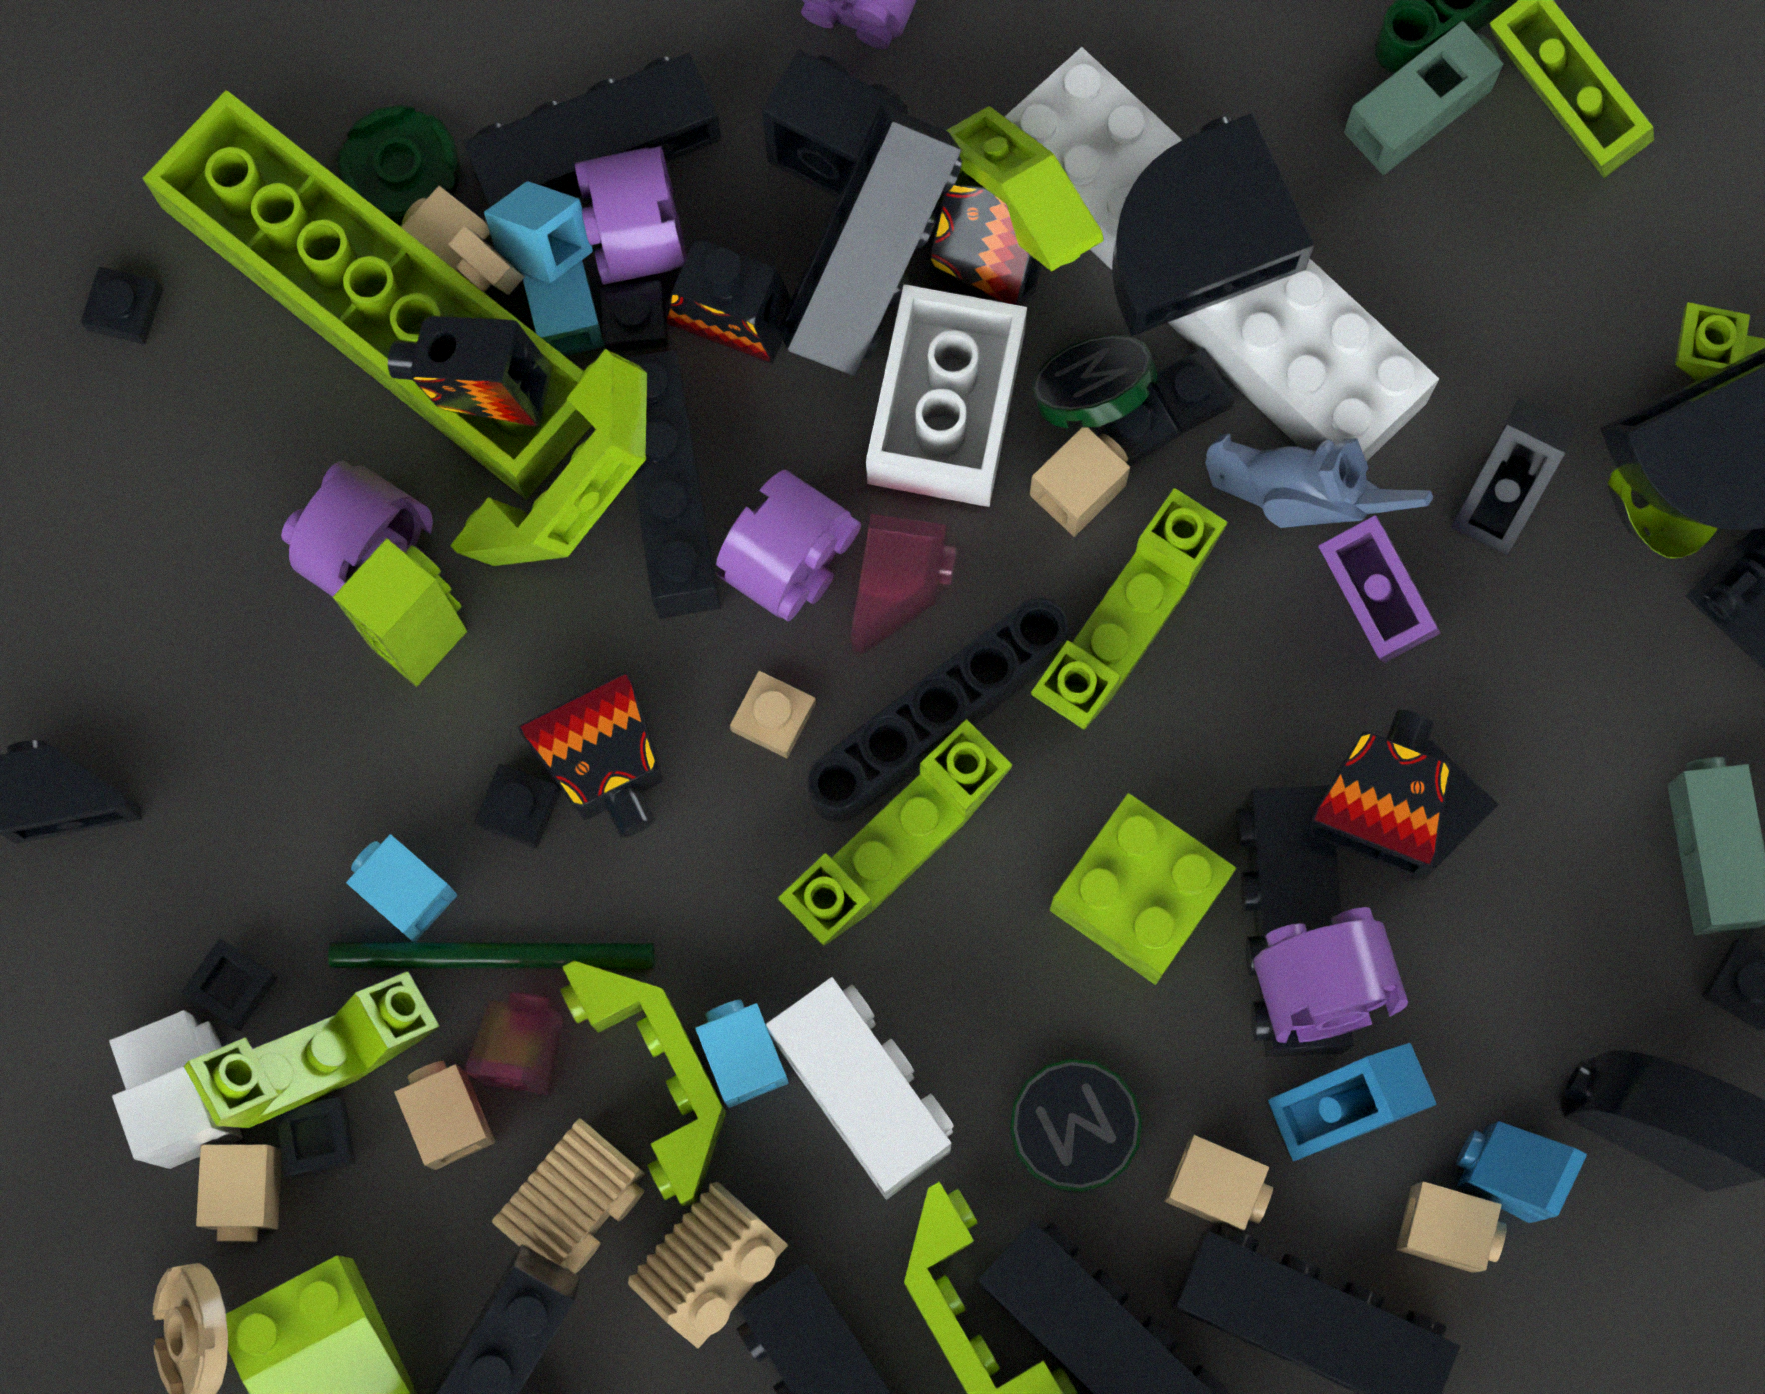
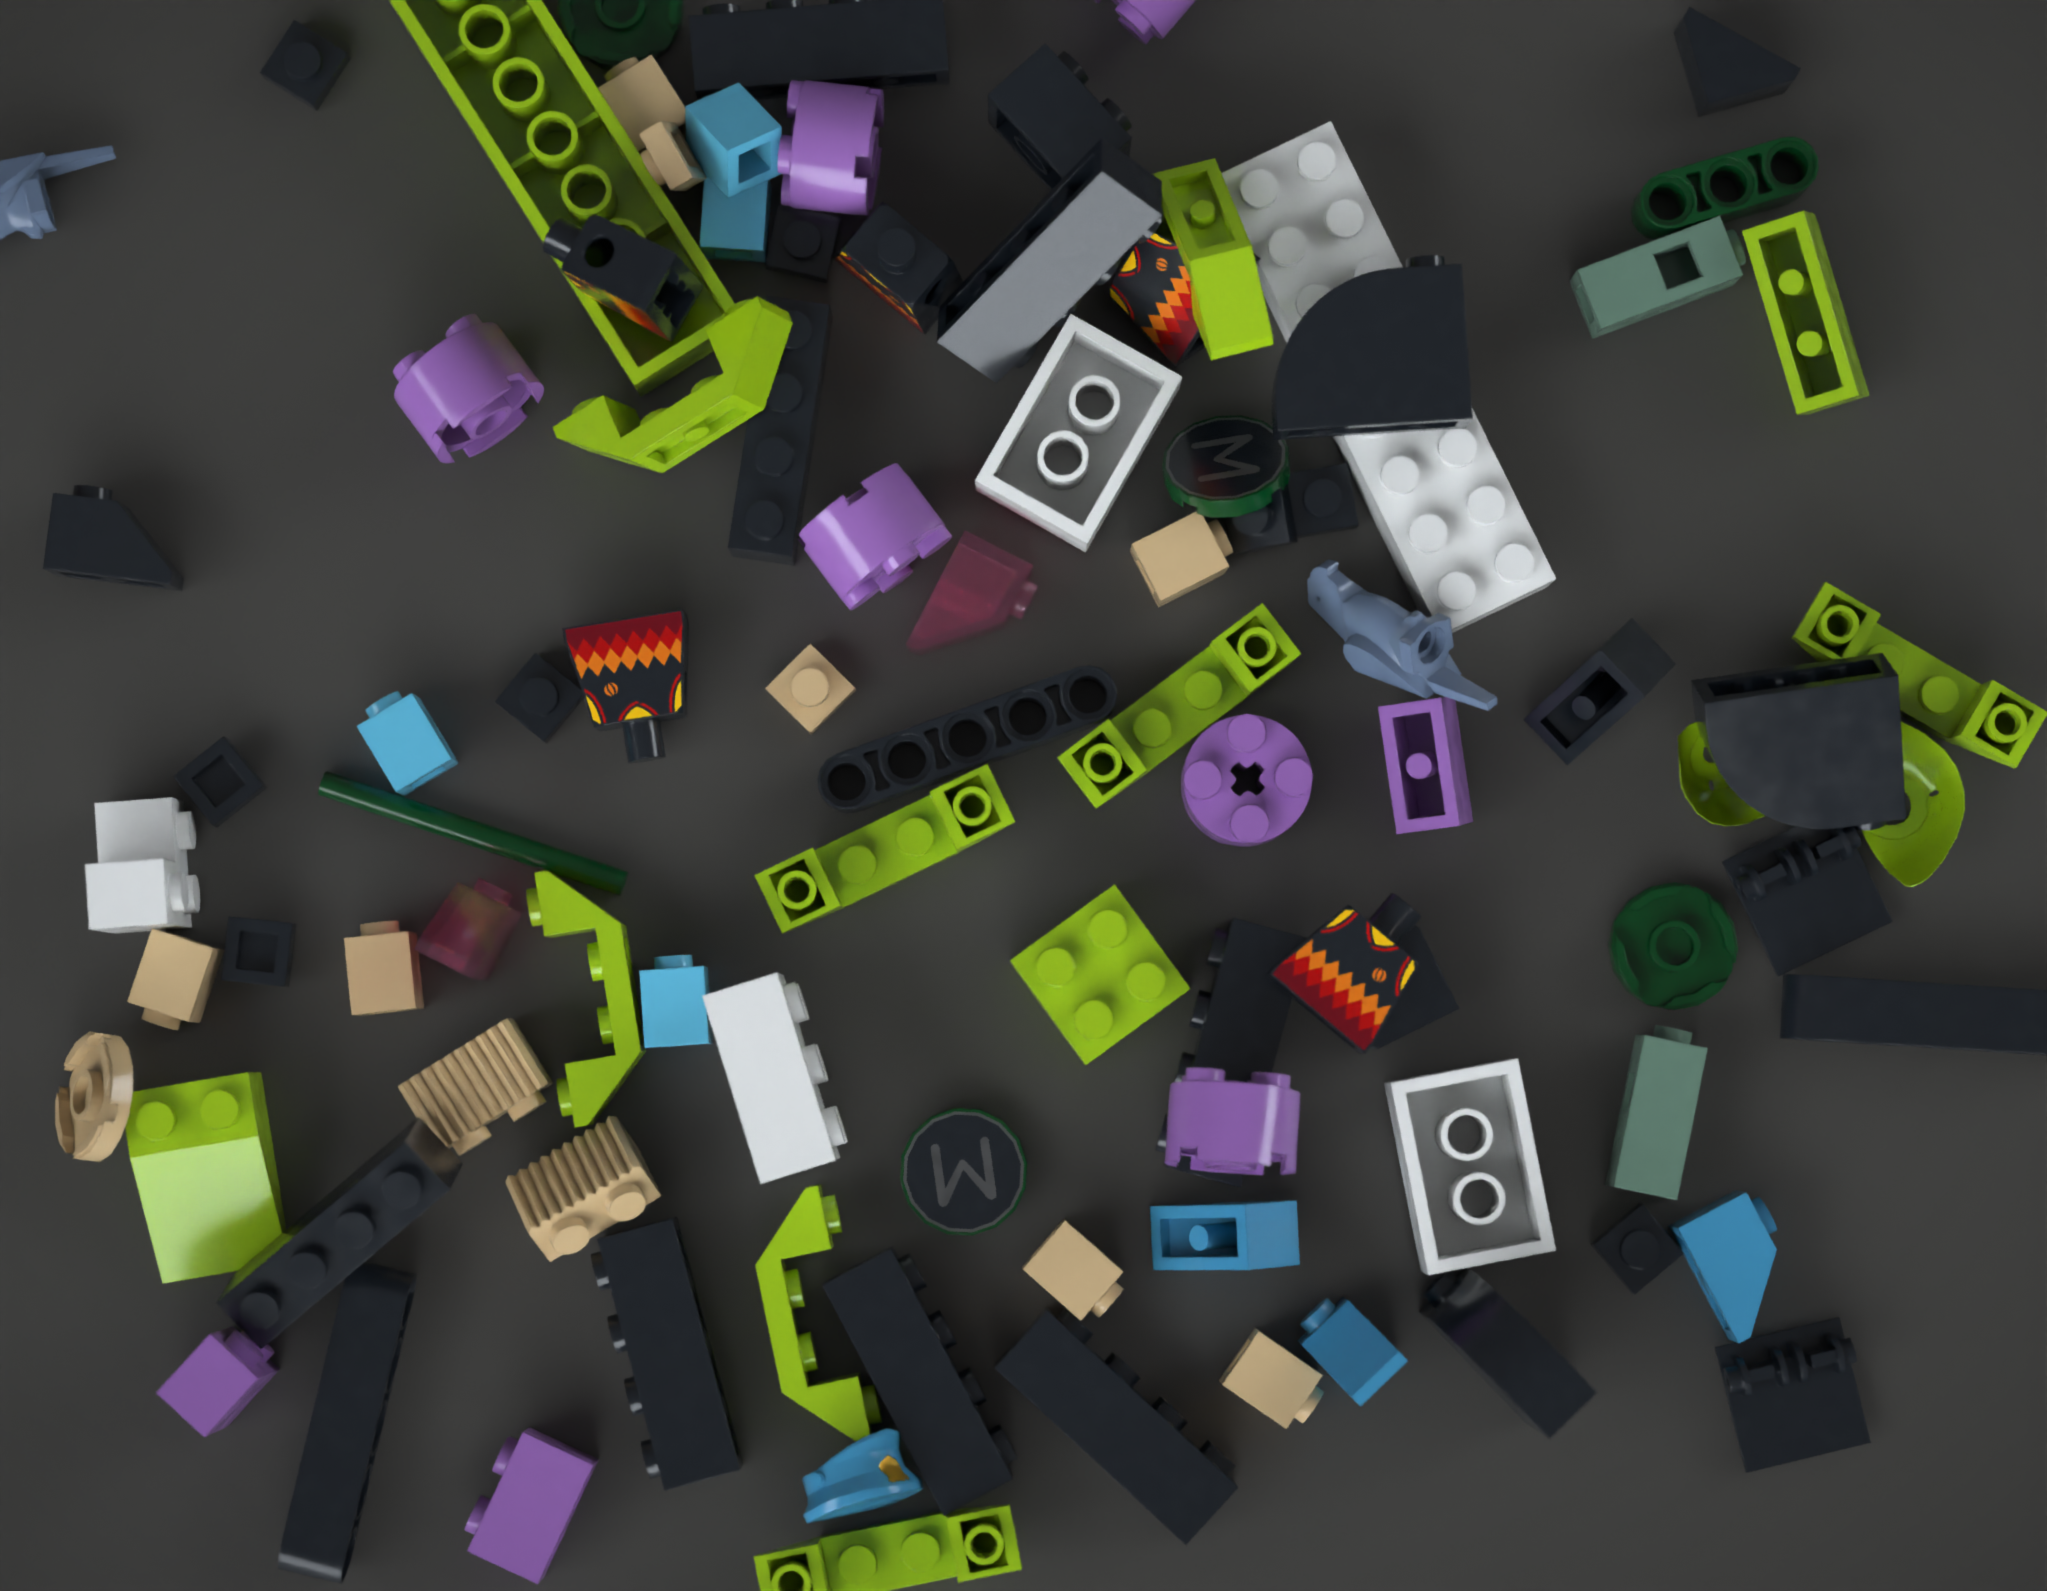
camera: 10 degrees right, 10 degrees up
(260, 1083) = (281, 880): lime slope -> none
(403, 609) = (487, 485): lime brick -> none
(1222, 626) = (1246, 743): none -> medium lavender brick
(1565, 952) = (1469, 1166): none -> white brick
(1671, 688) = (1673, 946): none -> dark green tile

